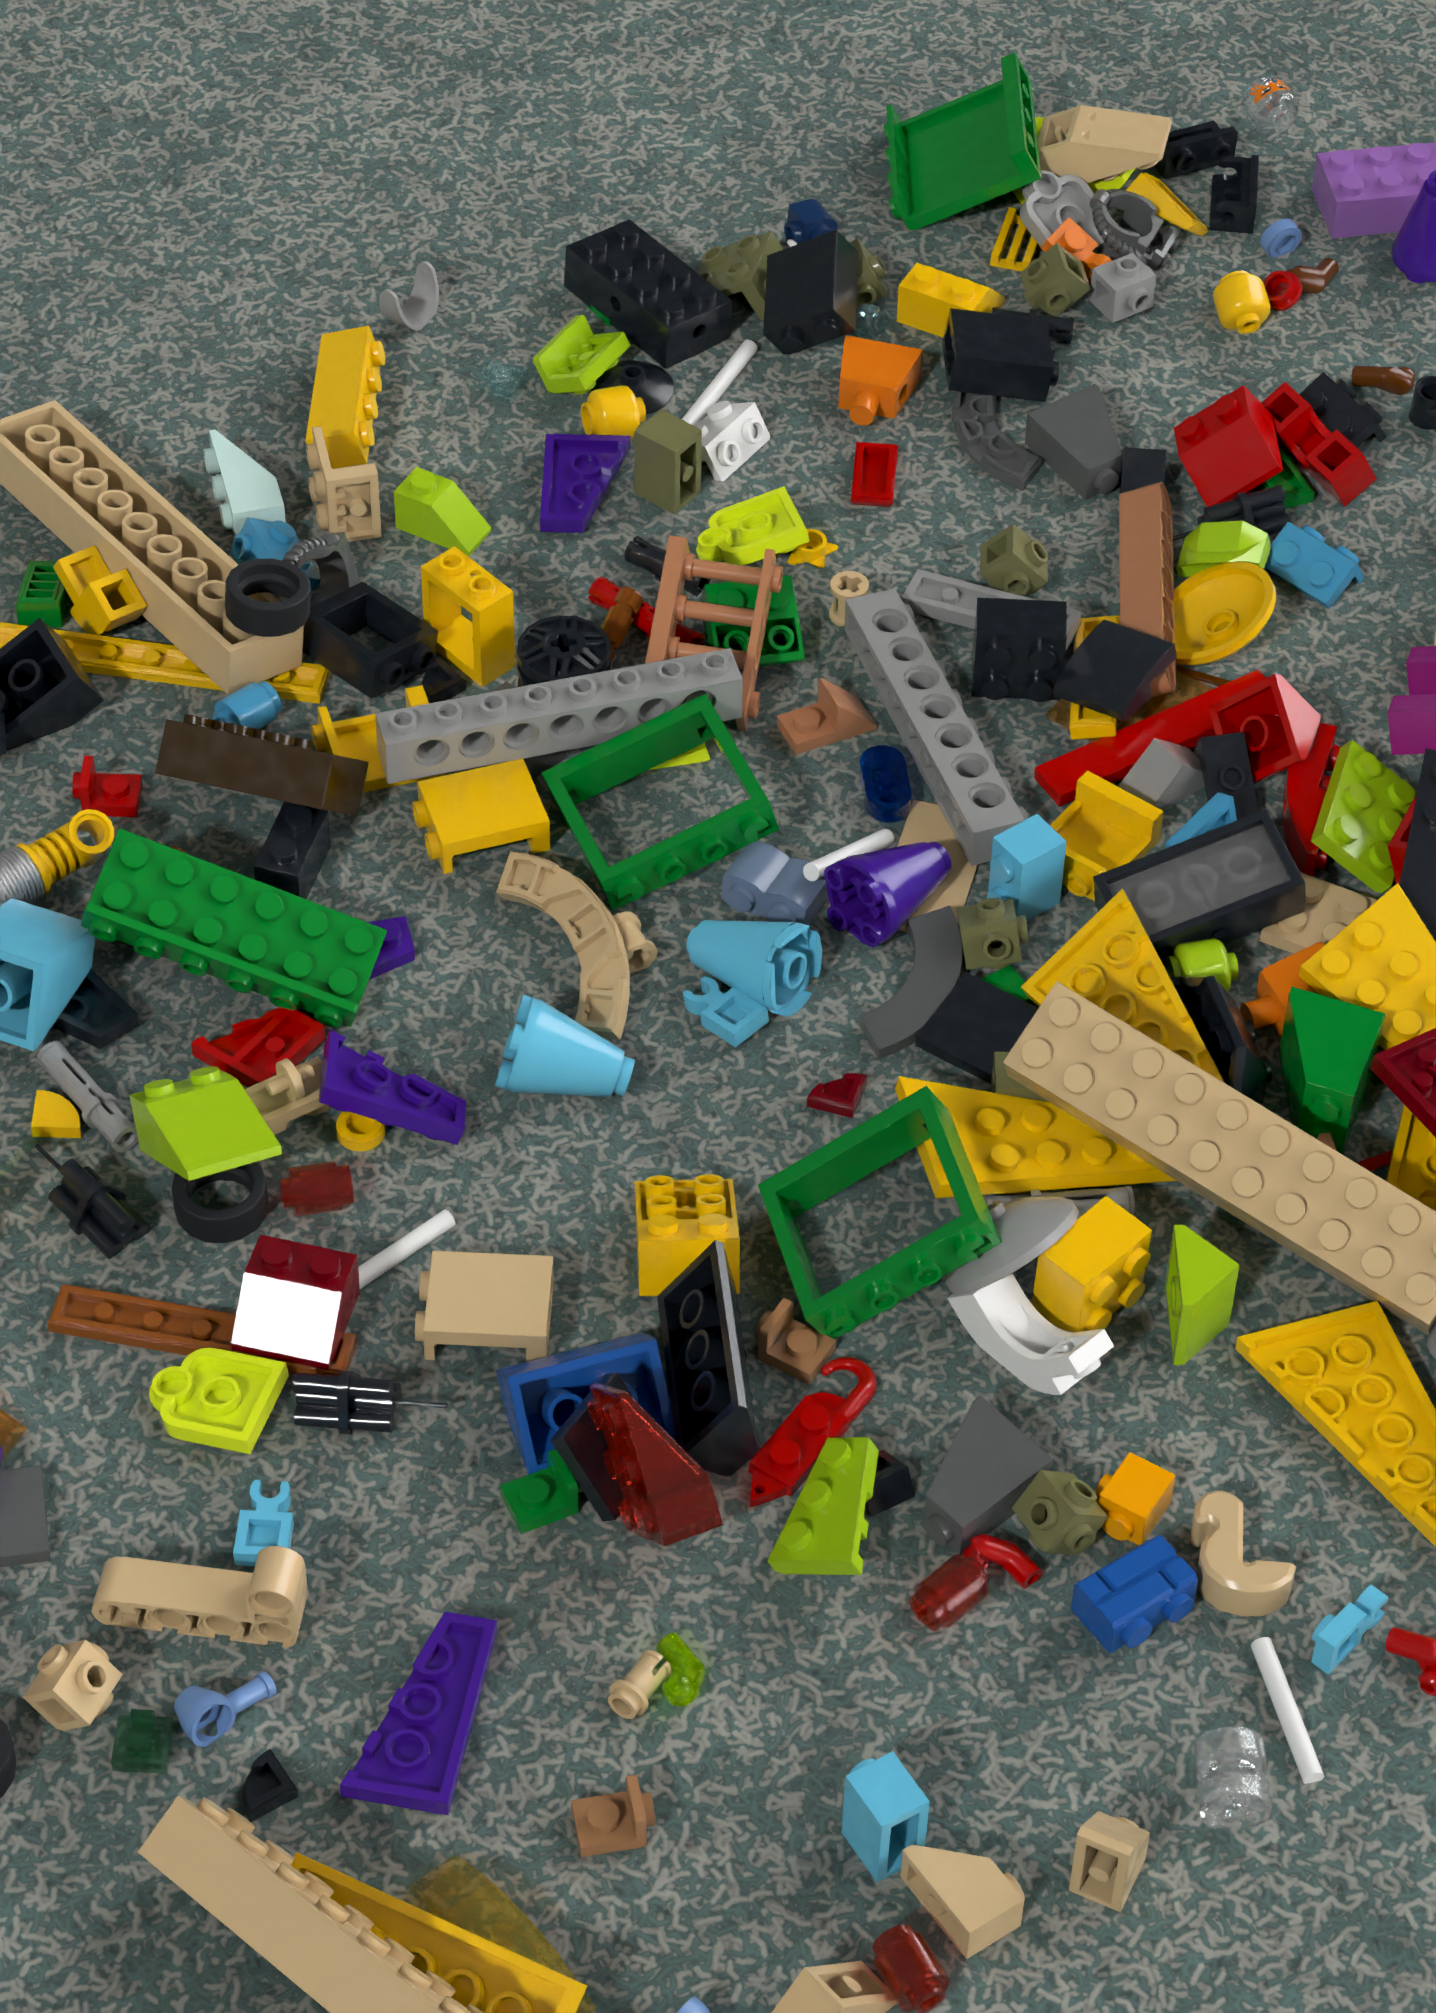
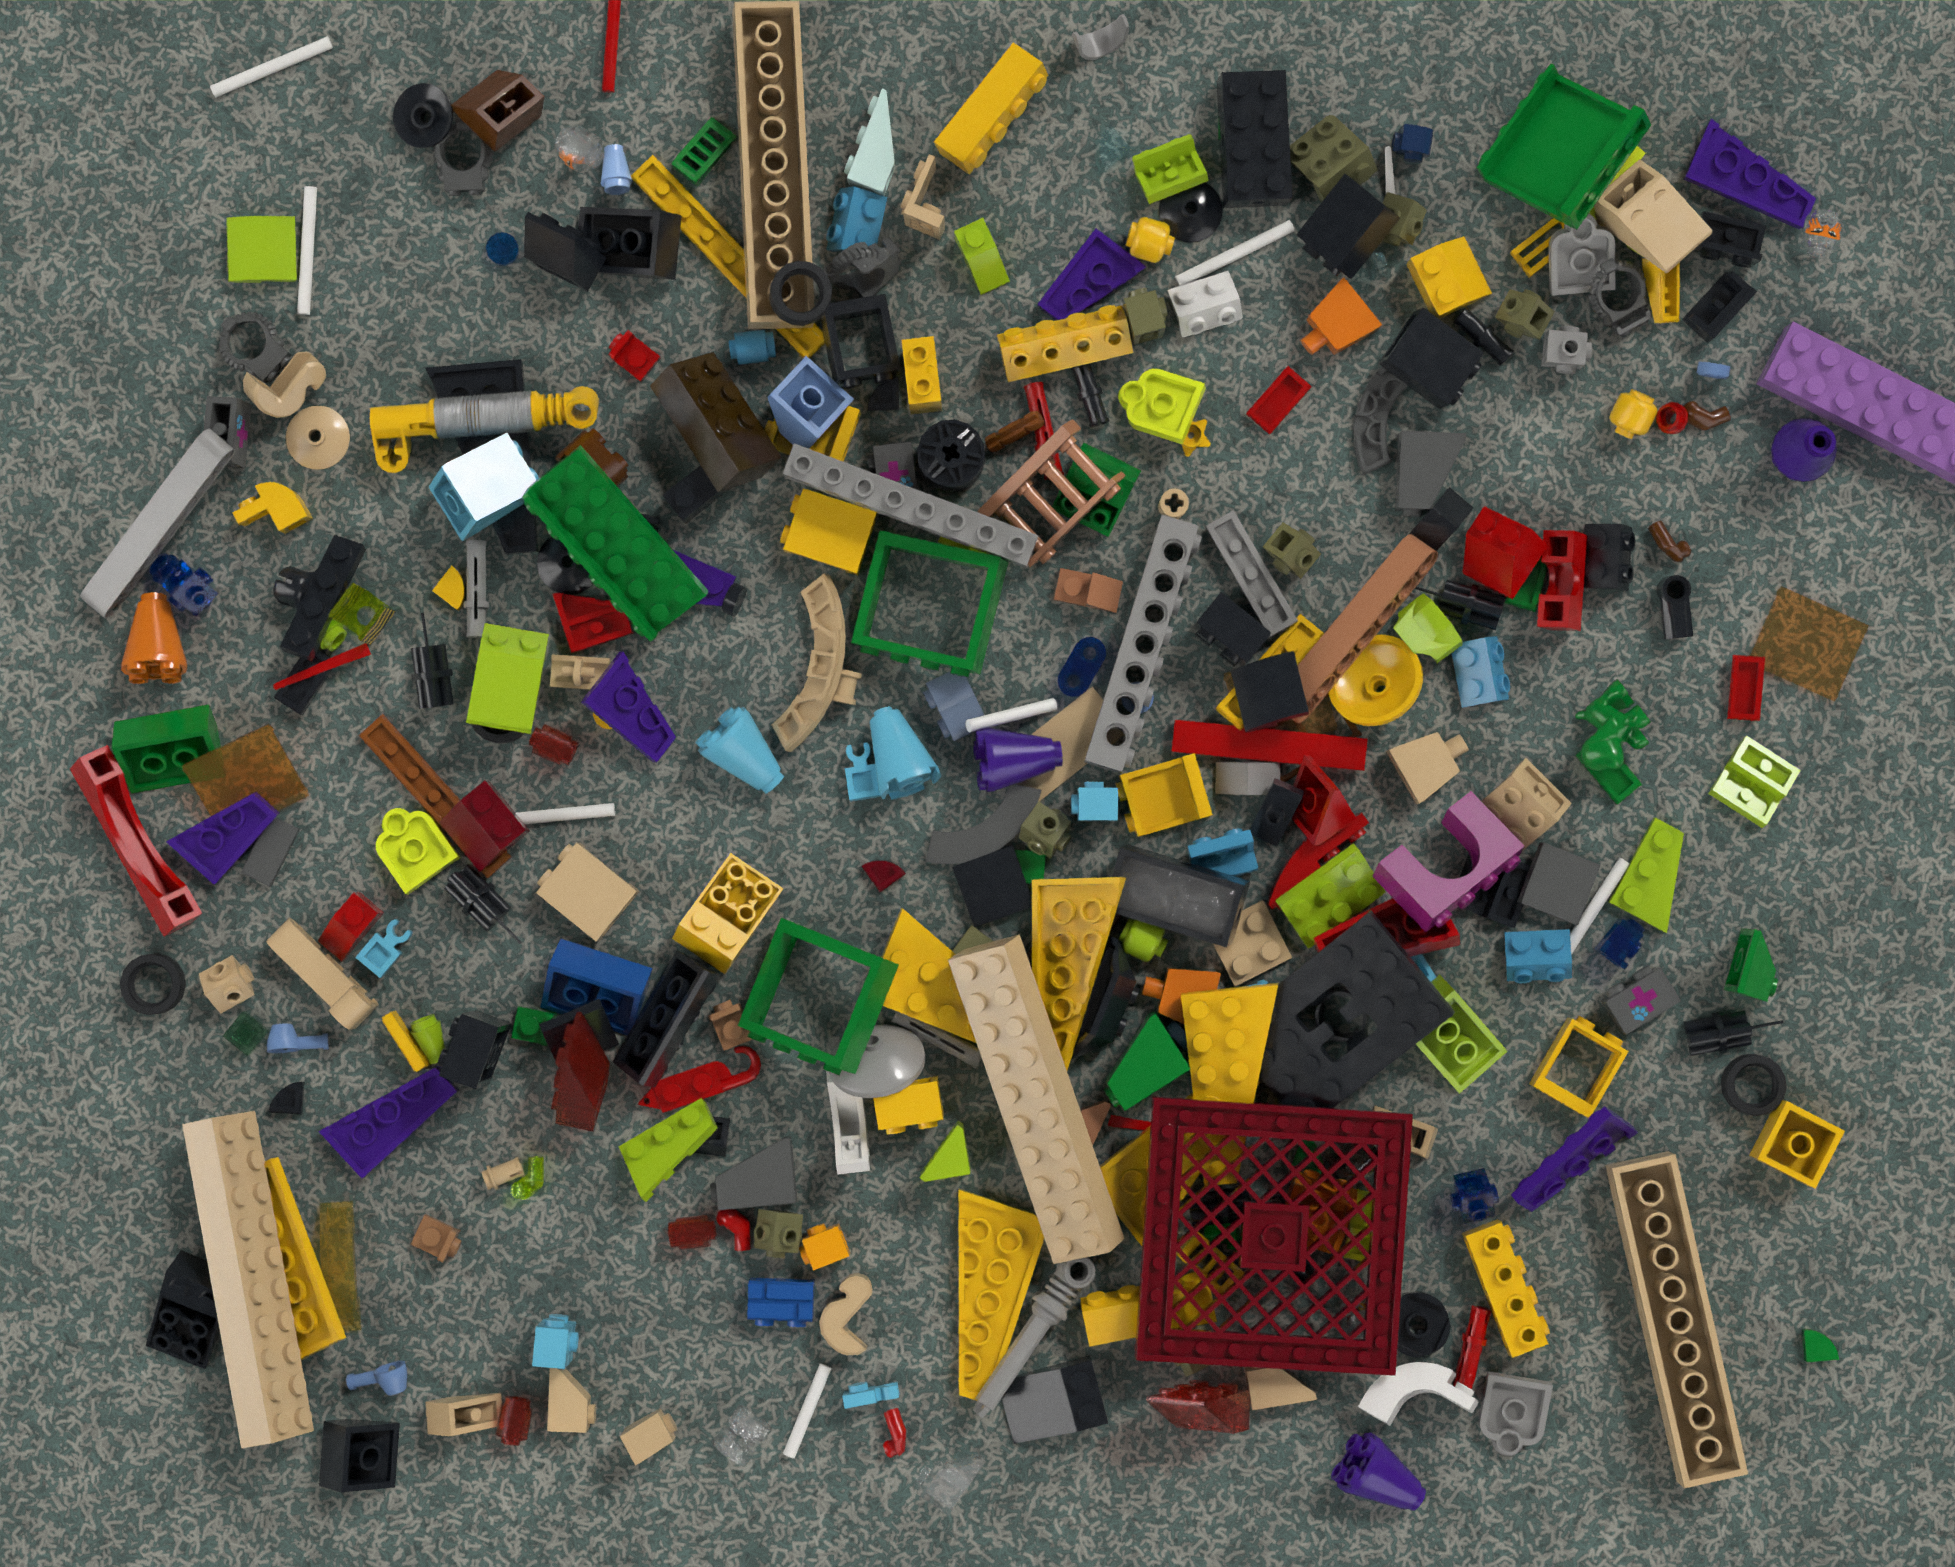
camera: 45 degrees right, 40 degrees up
(99, 598) = (725, 189): yellow brick -> none
(173, 1030) = (555, 576): none -> black dish
(198, 1514) = (350, 925): none -> red slope
(349, 709) = (807, 403): none -> medium blue slope
(379, 1608) = (405, 1041): none -> yellow tile
(407, 1588) = (429, 1037): none -> lime cone
(422, 935) = (734, 599): none -> black tile
(484, 1524) = (473, 1049): none -> black brick
(600, 529) = (1065, 343): none -> yellow brick
(1078, 244) = (1561, 291): orange plate -> none
(1185, 106) = (1740, 175): none -> dark purple wing
(1338, 662) = (1427, 763): none -> tan torso

